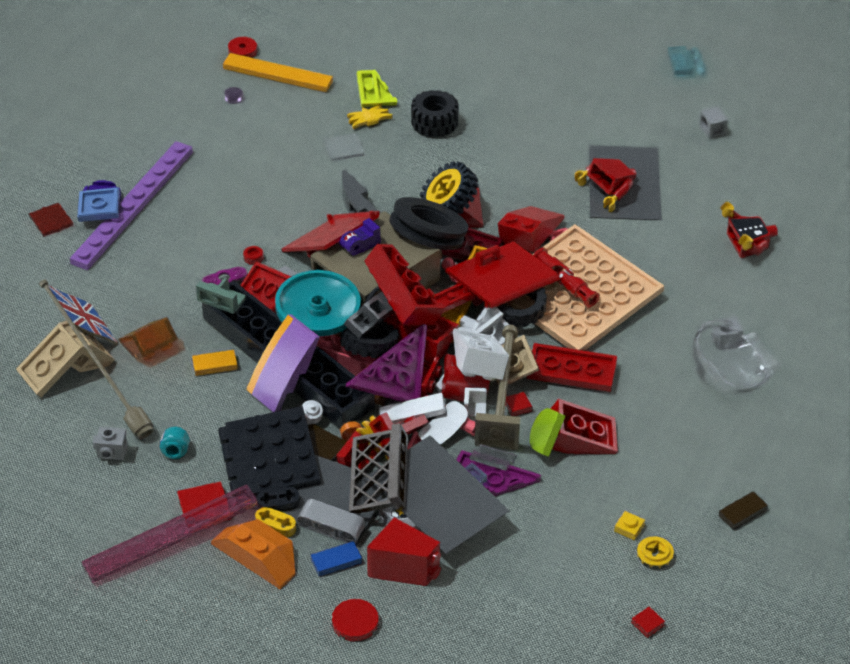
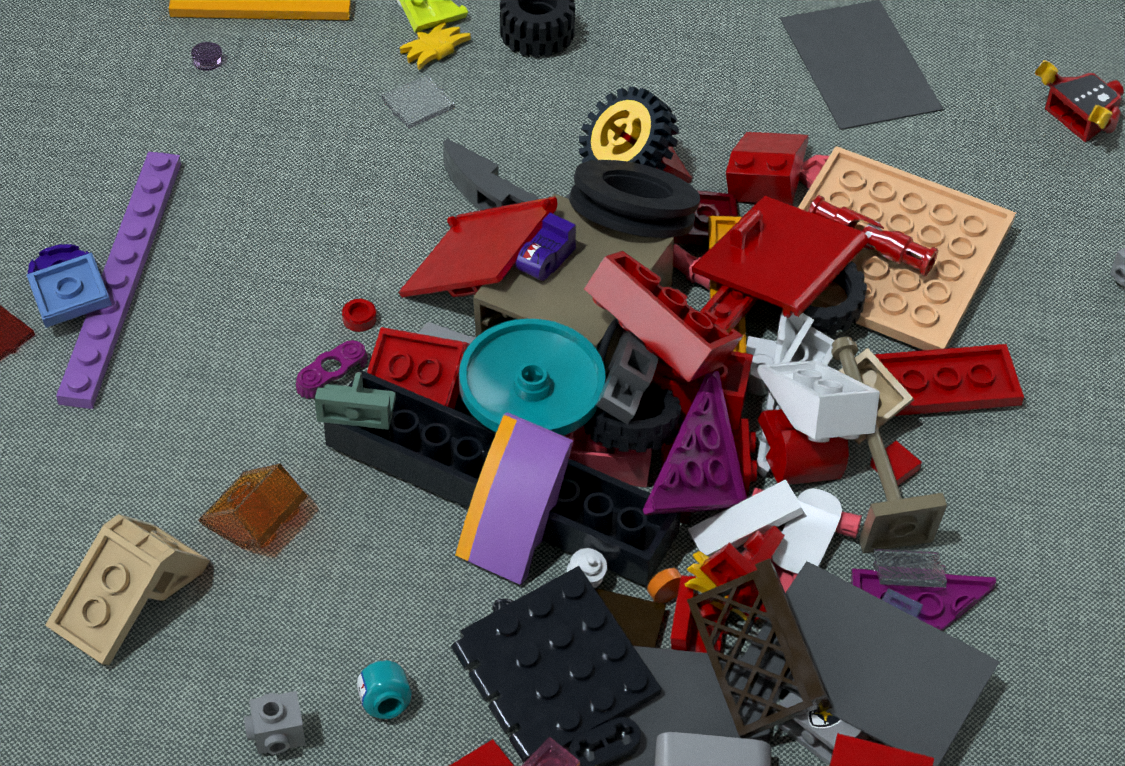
camera: 20 degrees left, 5 degrees up
(85, 318) = (144, 508): flag -> none
(214, 362) = (381, 520): light orange tile -> none
(475, 401) = (834, 477): white panel -> none
(545, 430) = (975, 501): lime tile -> none
(584, 430) = (1015, 484): red slope -> none
(611, 176) = (846, 58): red torso -> none

